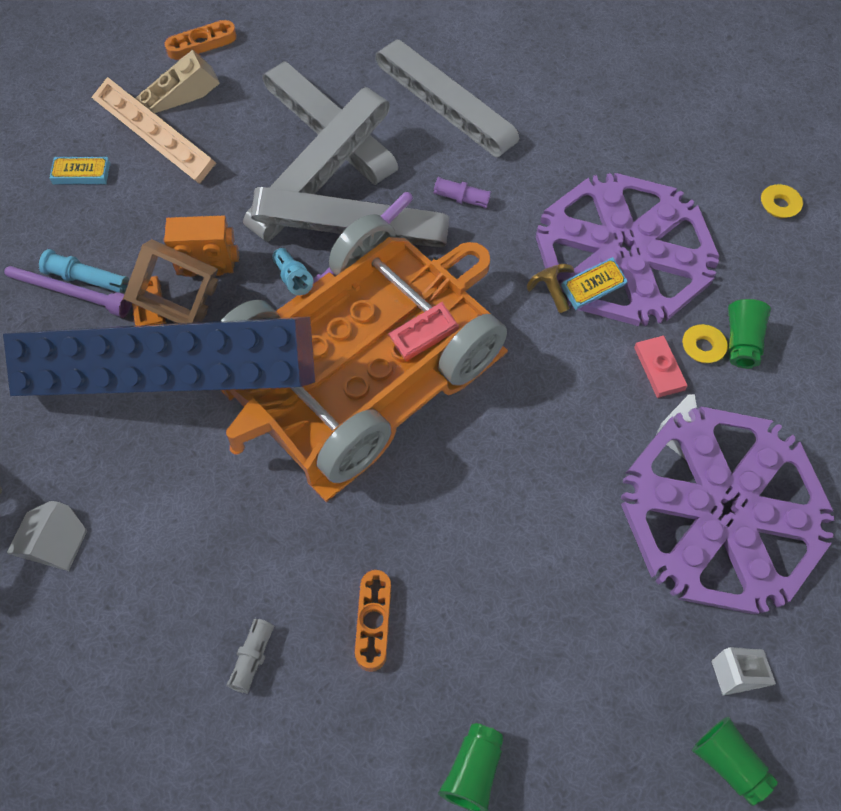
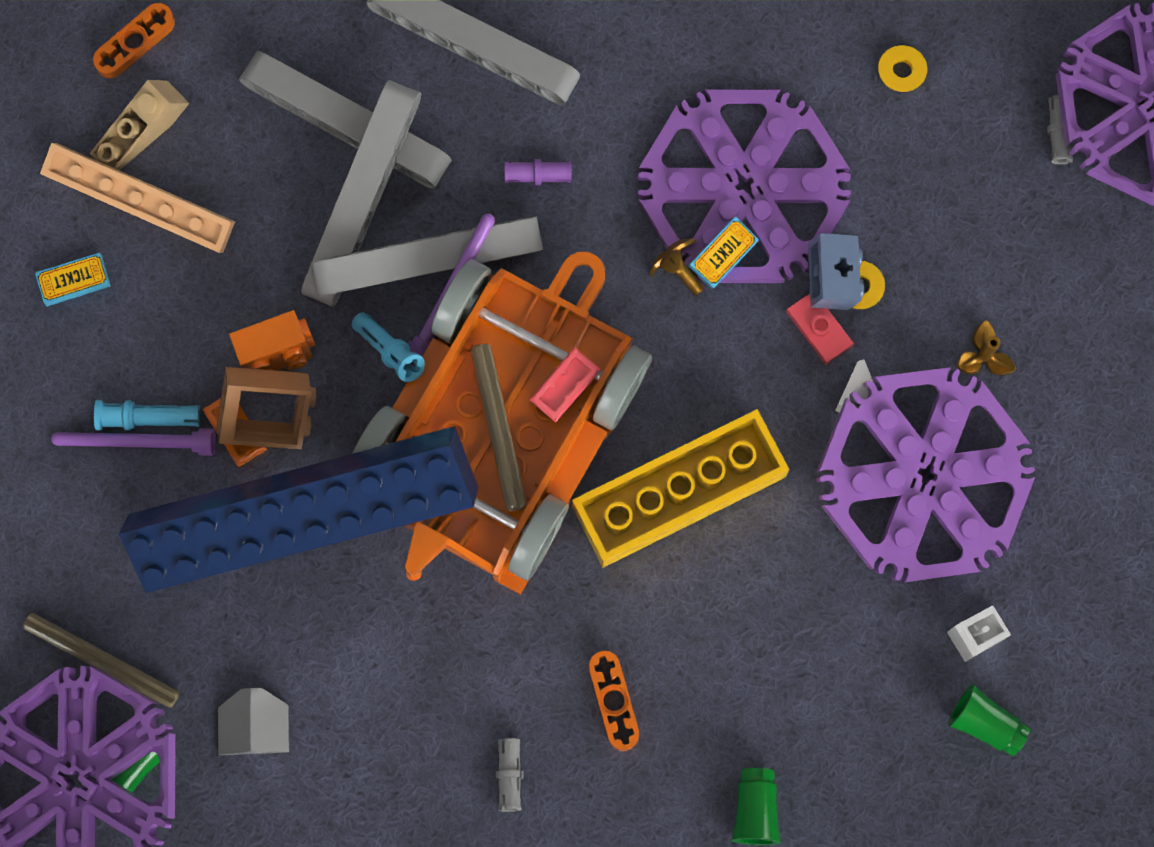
camera: 20 degrees left, 15 degrees up
(354, 350) = (498, 427): none -> dark tan axle
(497, 451) = (680, 488): none -> yellow brick
(687, 322) = (830, 262): none -> sand blue brick
(747, 331) = (902, 261): green plant -> none
(807, 417) = (987, 344): none -> pearl gold plant

